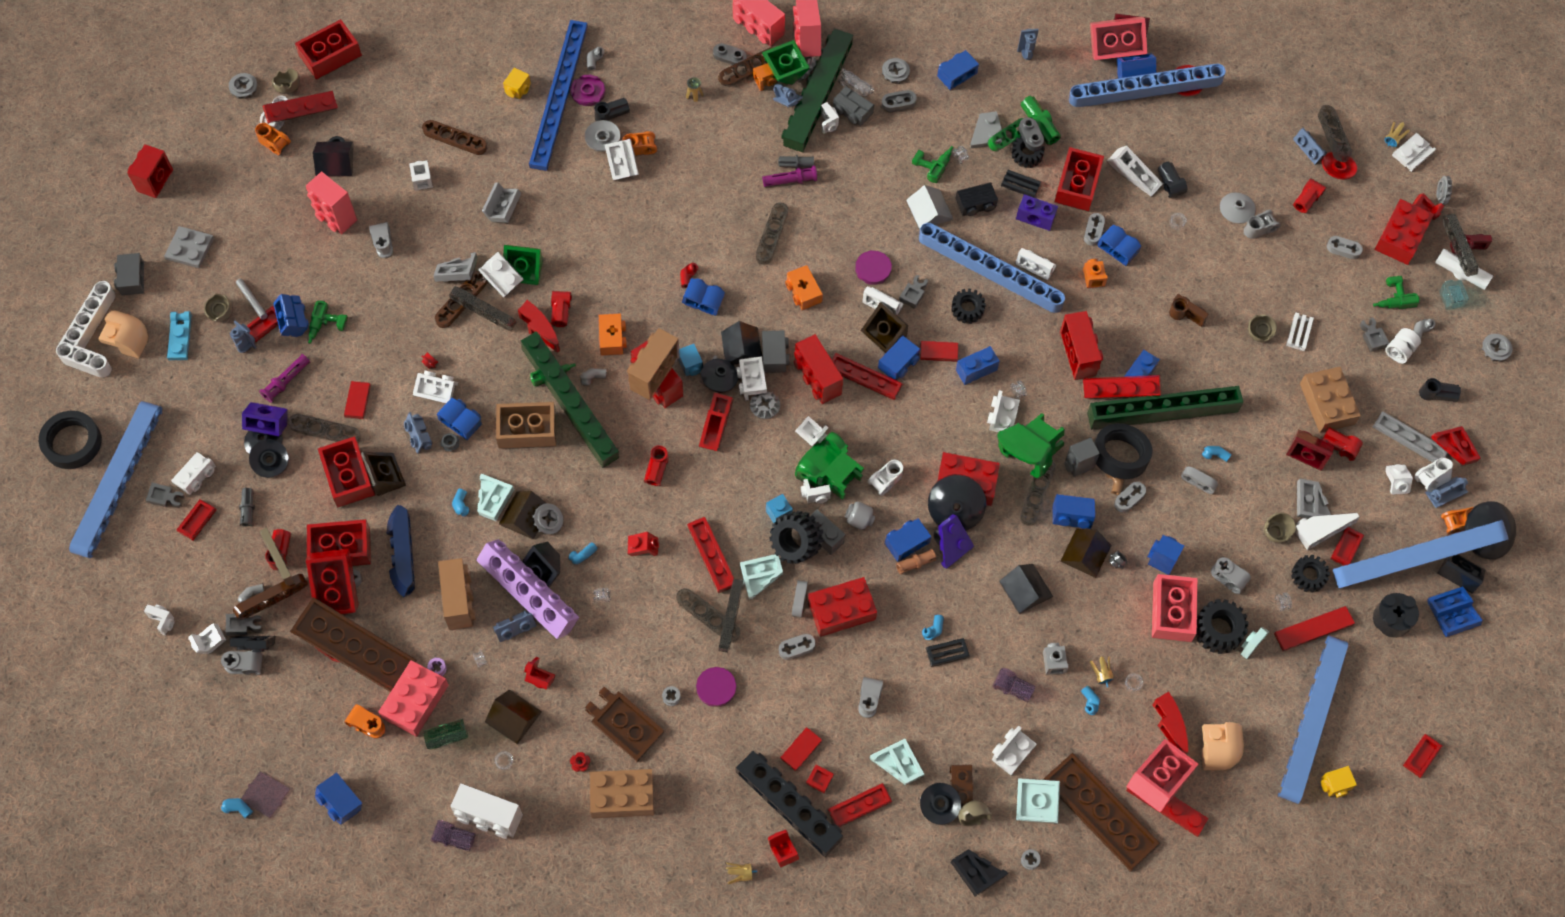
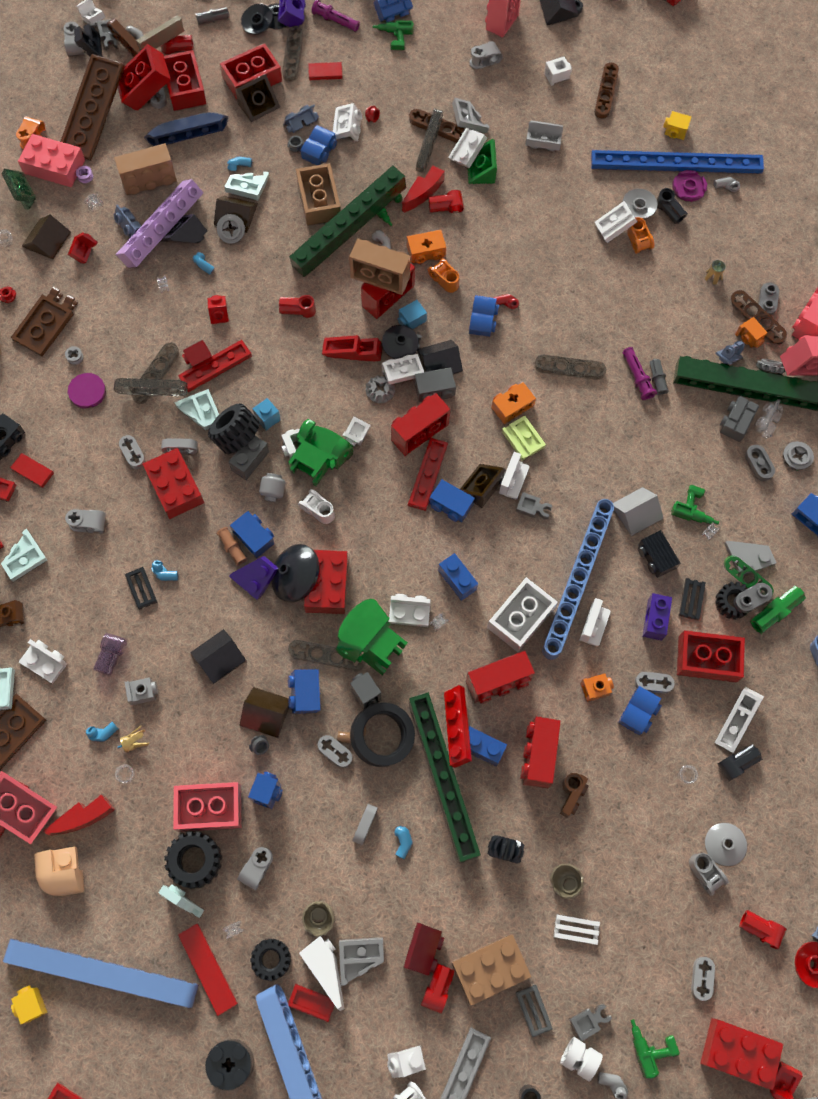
camera: 80 degrees right, 5 degrees up
(645, 324) = (443, 273): none -> orange piece
(697, 567) = (196, 353): none -> red brick
(786, 62) = (766, 342): green slope -> none
(830, 115) = (714, 402): white bracket -> none
(841, 286) = (523, 437): none -> yellowish green plate
(873, 267) = (553, 465): magenta tile -> none
(939, 351) = (470, 540): red tile -> none
(964, 315) = (538, 556): black tyre -> none
(1022, 318) = (522, 614): none -> white brick
(1152, 325) = (540, 752): none -> red brick
(1232, 369) = (506, 849): none -> black gear
(1379, 379) = (541, 1030): none -> dark grey tile

